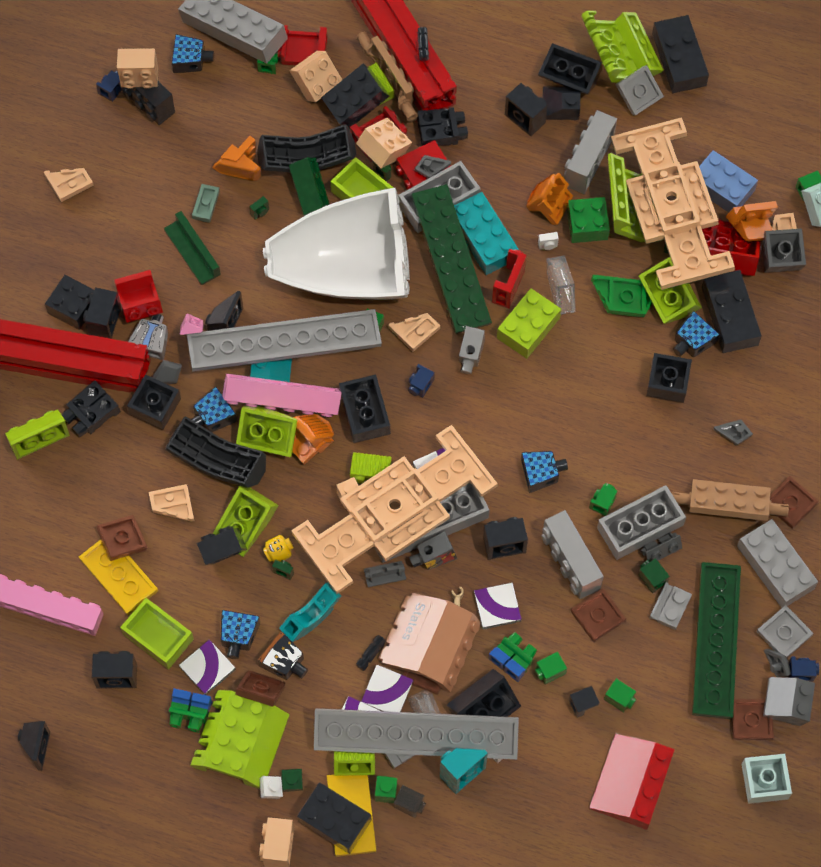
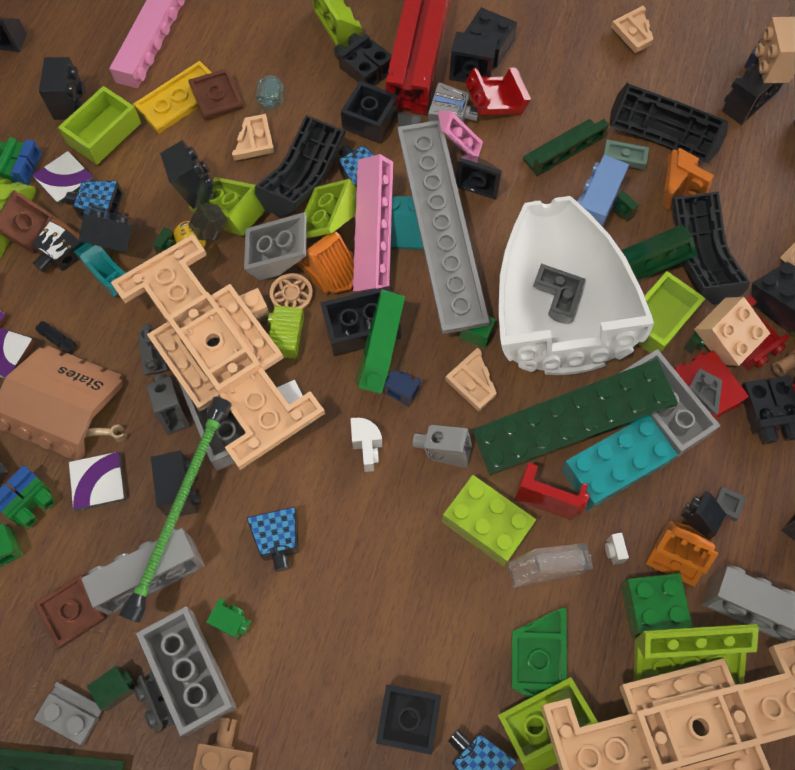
camera: 90 degrees right, 0 degrees up
(123, 490) = (269, 91): none -> clear light blue head
(181, 165) = (668, 122): none -> black piece
(252, 221) = (603, 187): none -> medium blue brick
(272, 525) = (208, 222): none -> clear smoke brick
(277, 608) = (105, 228): none -> black brick
(298, 468) = (275, 246): none -> light grey slope
(332, 467) = (291, 292): none -> light nougat wheel
(338, 257) = (566, 290): none -> dark grey brick
(398, 392) = (380, 342): none -> green slope
(463, 407) = (366, 437): none -> white brick
(513, 166) = (730, 502): none -> dark grey plate
(524, 182) = (704, 515): none -> black slope
(602, 545) = (136, 604): none -> bright green hose

